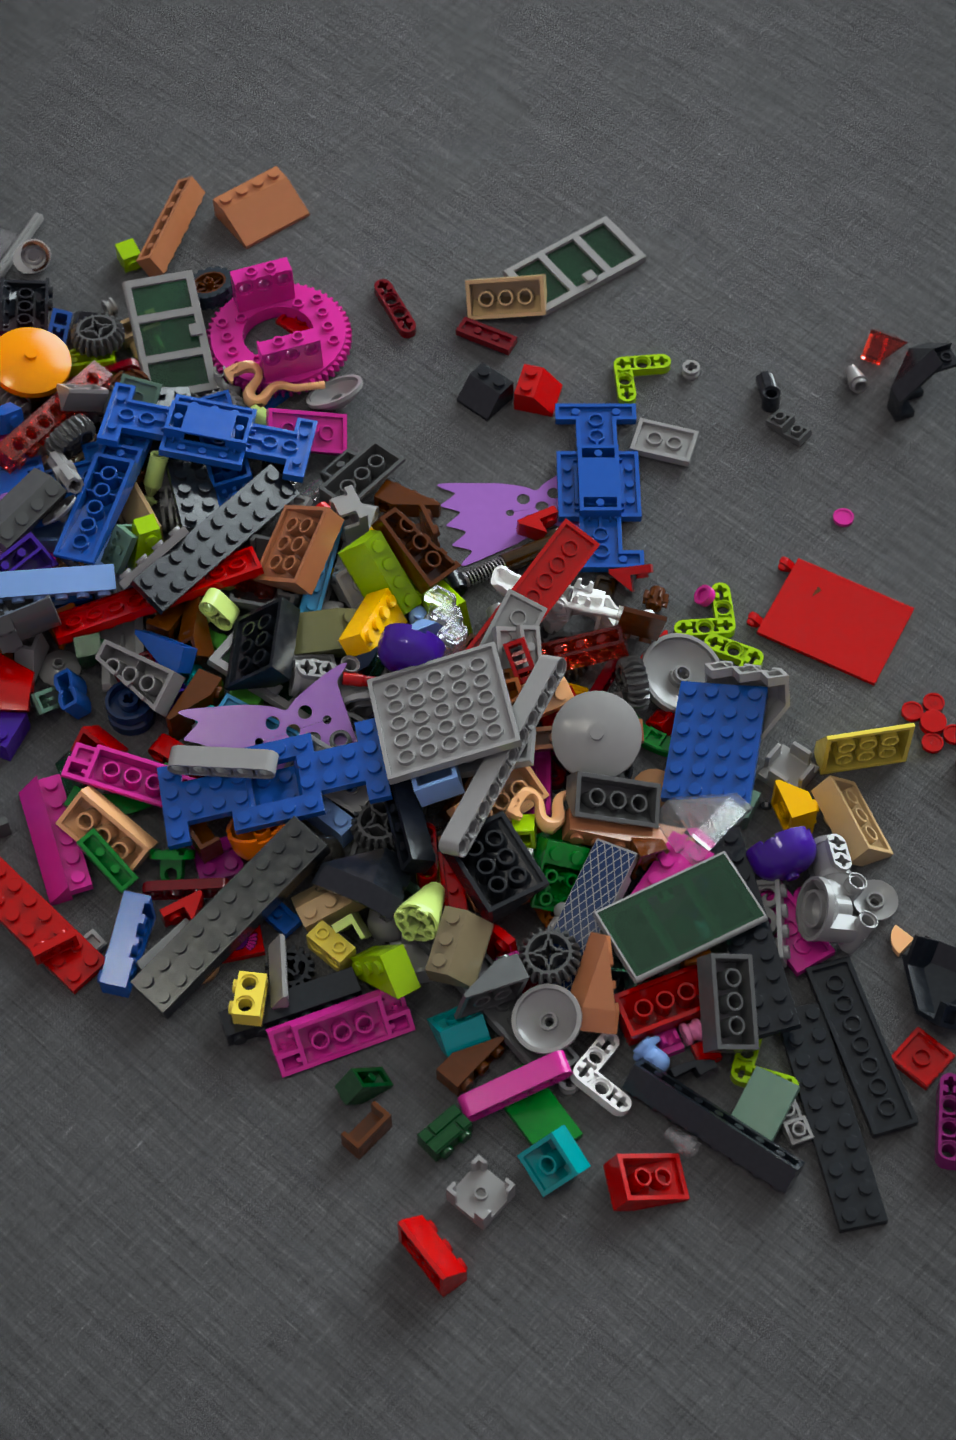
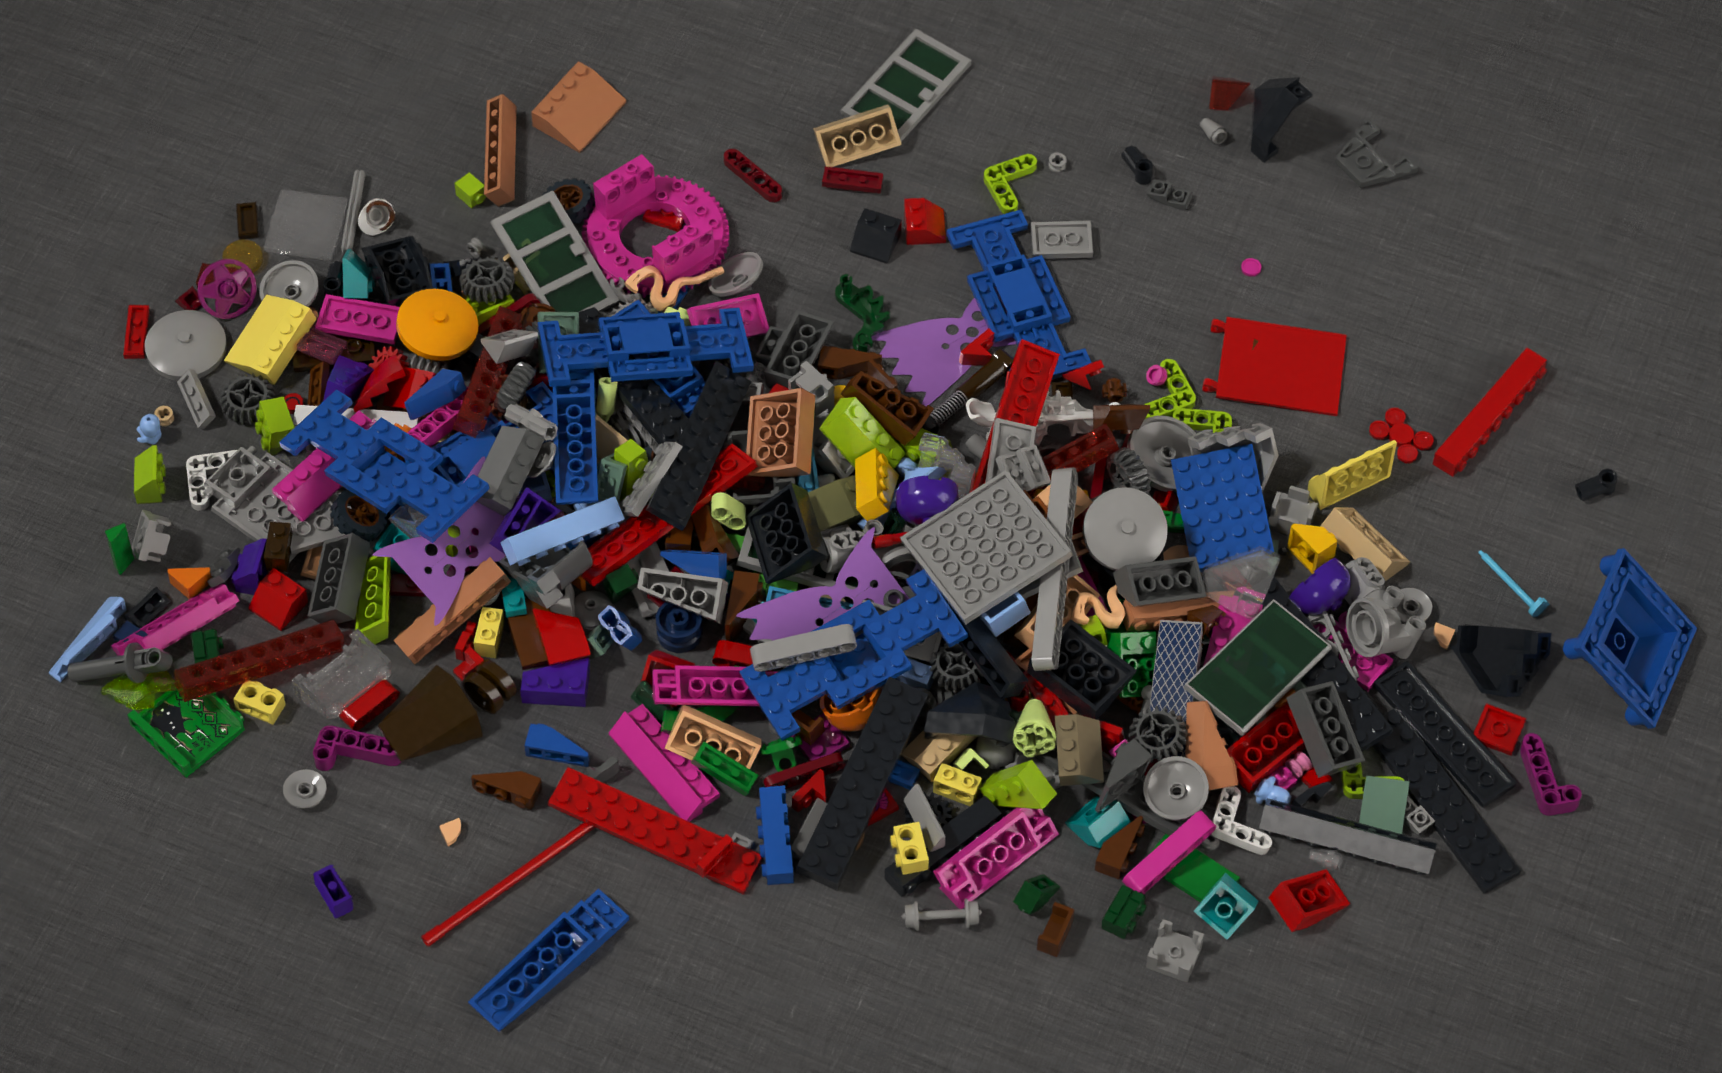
camera: 20 degrees left, 0 degrees up
(227, 1070) = (970, 913): none -> light grey piece
(432, 1253) = (1155, 1013): red slope -> none
(447, 456) = (866, 308): none -> dark green animal
(515, 643) = (1028, 463): red slope -> none

